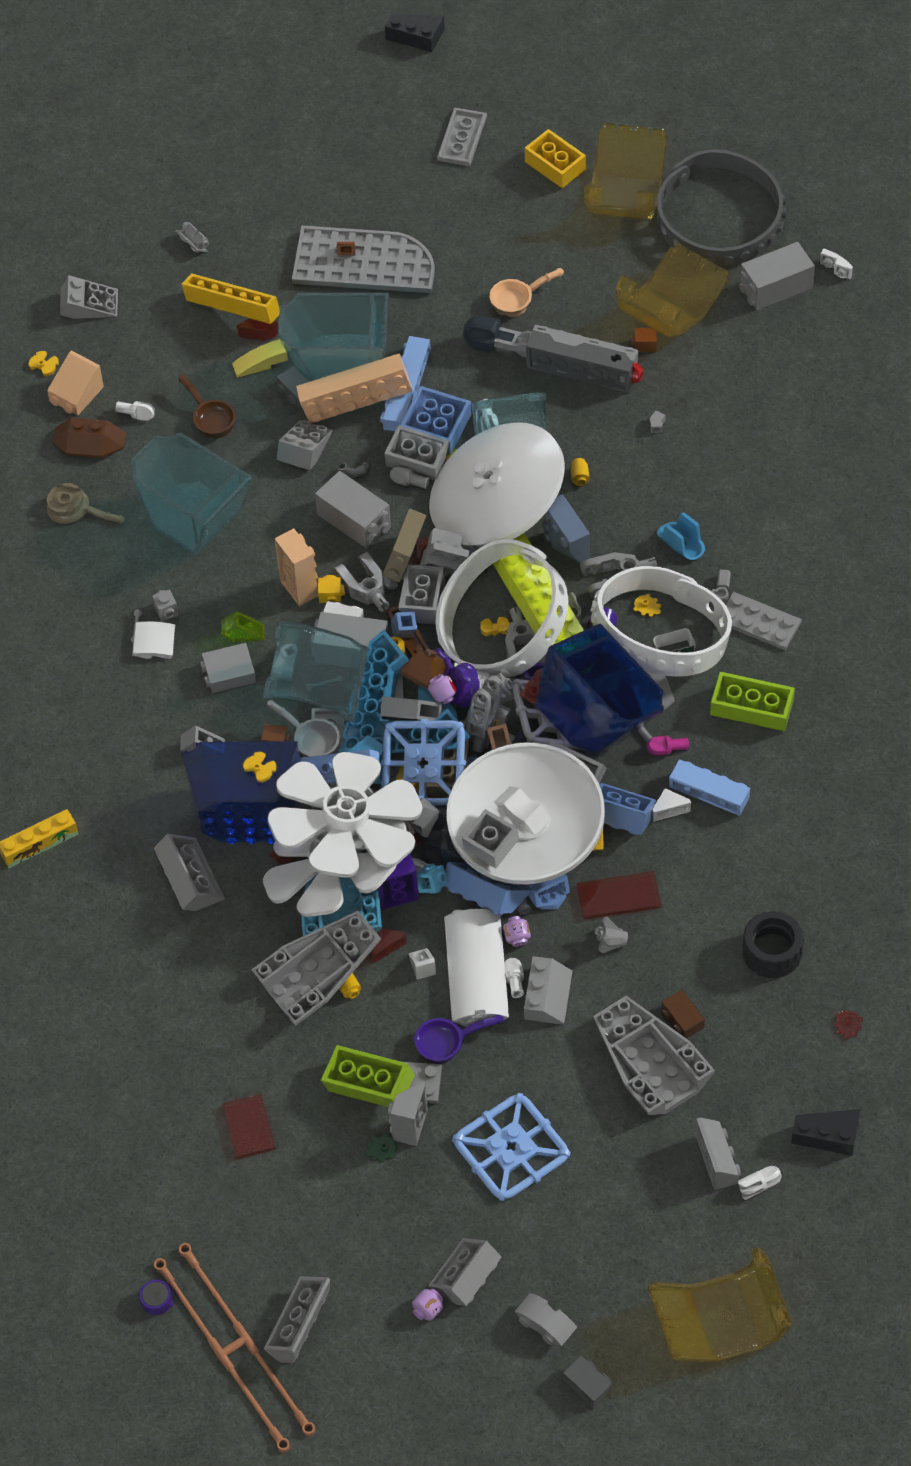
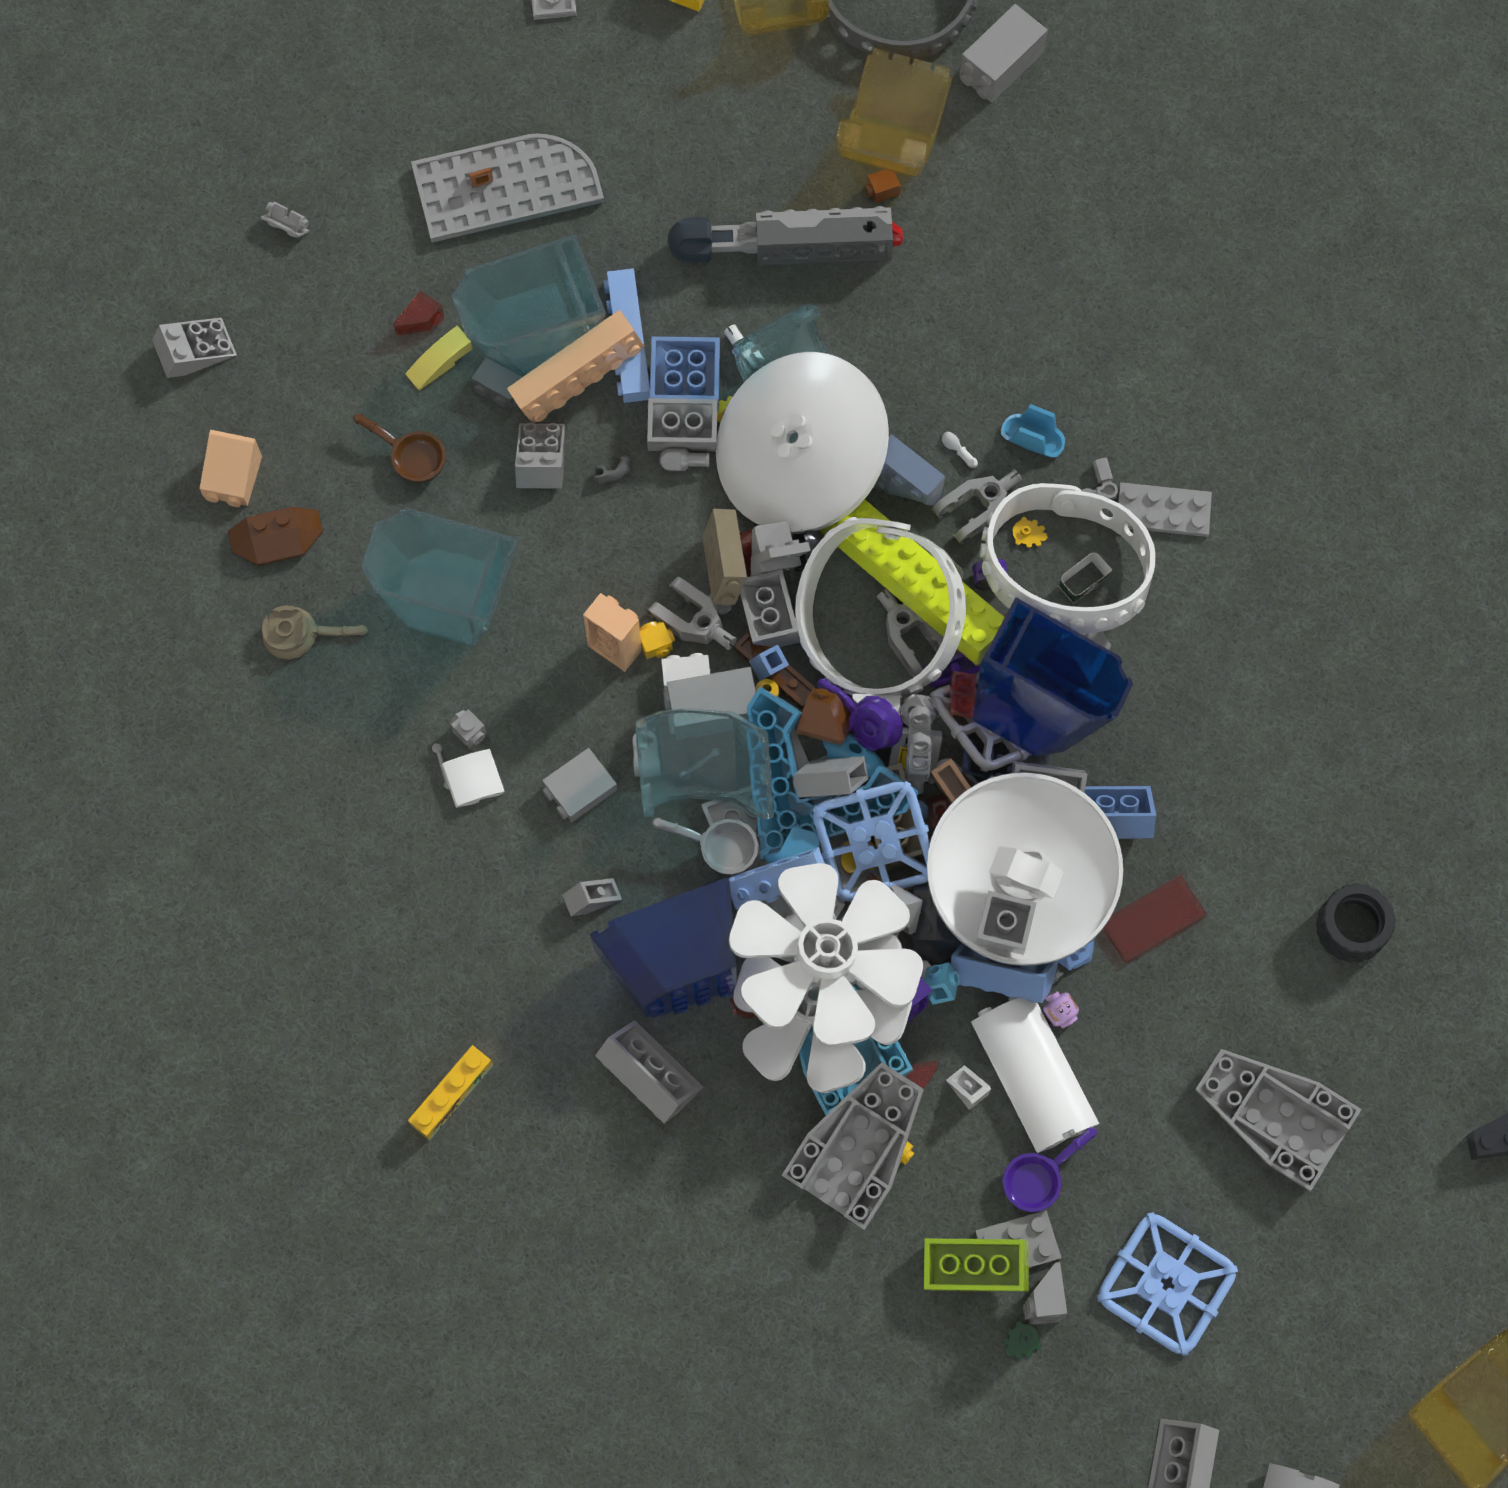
camera: 25 degrees left, 15 degrees up
(47, 367) = (167, 449): yellow piece -> none
(137, 410) = (321, 477): white arm -> none
(231, 298) = (373, 292): yellow brick -> none
(242, 628) = (573, 727): clear neon green slope -> none
(249, 1126) = (859, 1371): clear red tile -> none
(262, 772) = (691, 928): yellow piece -> none
(275, 733) = (675, 858): dark orange brick -> none
(353, 509) = (640, 527): light grey brick -> none
(442, 689) = (859, 740): lavender head -> none
(488, 628) = (874, 619): yellow piece -> none
(513, 296) = (706, 177): light nougat piece -> none
(514, 976) = (1081, 1067): white arm -> none
(547, 991) = (1126, 1073): light grey slope -> none
(579, 472) = (882, 384): yellow brick -> none
(610, 936) = (1168, 977): light grey rock -> none
(617, 527) = (952, 442): none -> white piece
(656, 422) = (940, 290): light grey piece -> none
(665, 745) = (1132, 706): dark pink arm -> none
(670, 805) = (1166, 782): white slope -> none
(682, 1014) = (1290, 1047): reddish brown brick -> none
(709, 787) = (1201, 746): light blue brick -> none
(717, 1153) = (1402, 1209): light grey slope -> none
(752, 701) = (1204, 619): lime brick -> none
(759, 1181) = (1460, 1223): white arm -> none
(832, 260) = (1068, 15): white slope -> none
(848, 1023) = (1473, 987): clear red piece -> none

